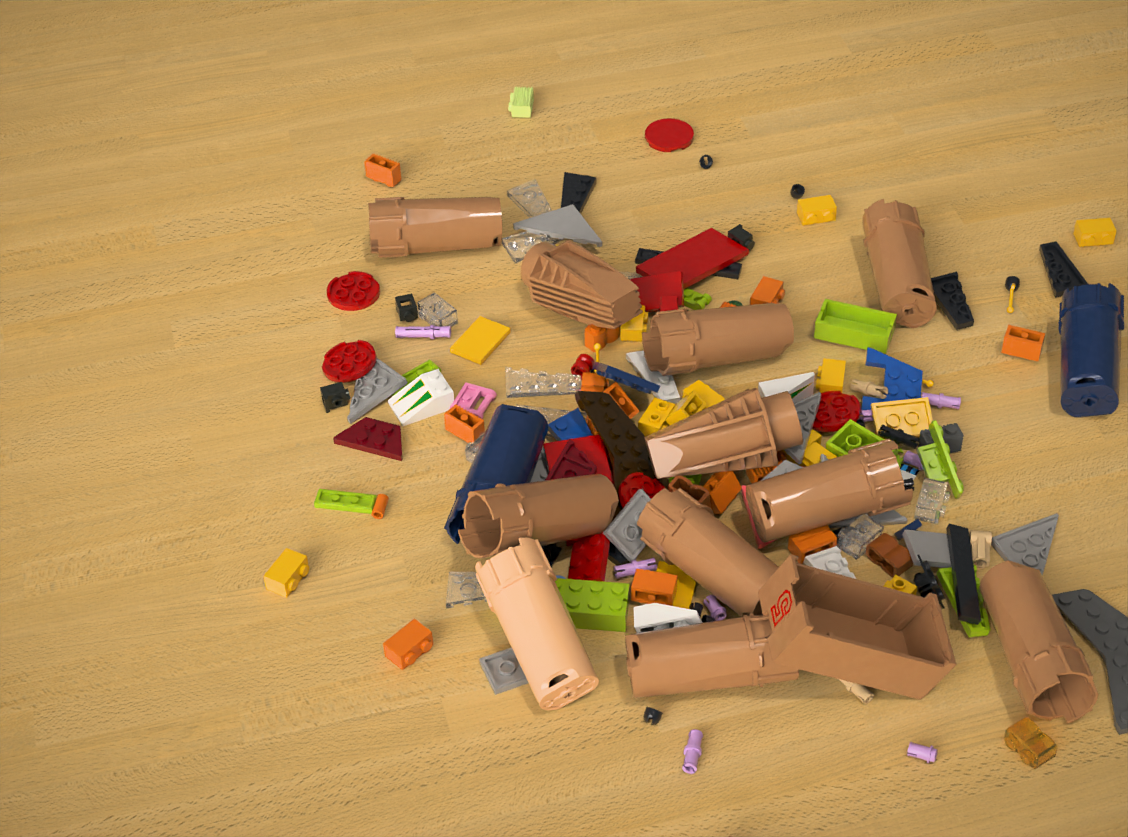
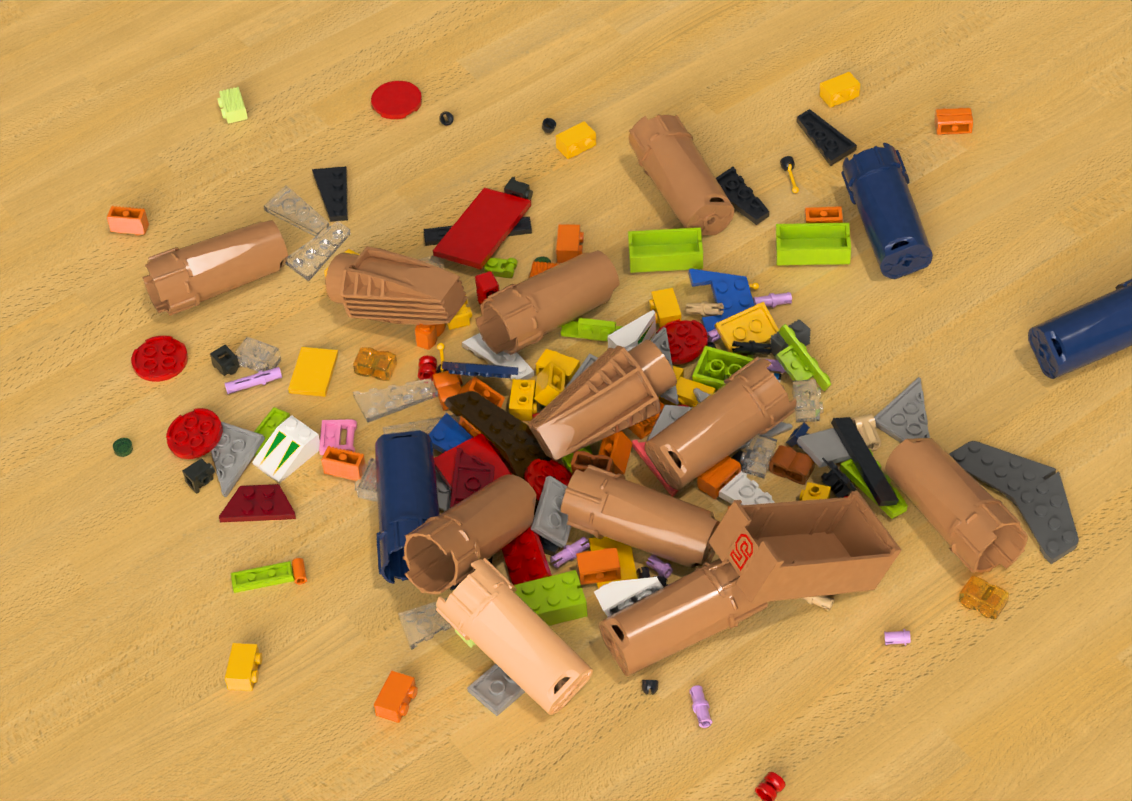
camera: 20 degrees left, 5 degrees up
(283, 354) = (122, 447): none -> clear green tile
(537, 348) = (375, 363): none -> clear yellow brick
(561, 224) = (339, 226): light grey tile -> none
(659, 285) = (469, 265): red tile -> none
(747, 374) = (589, 329): none -> lime bracket
(1003, 360) = (813, 244): none -> lime piece

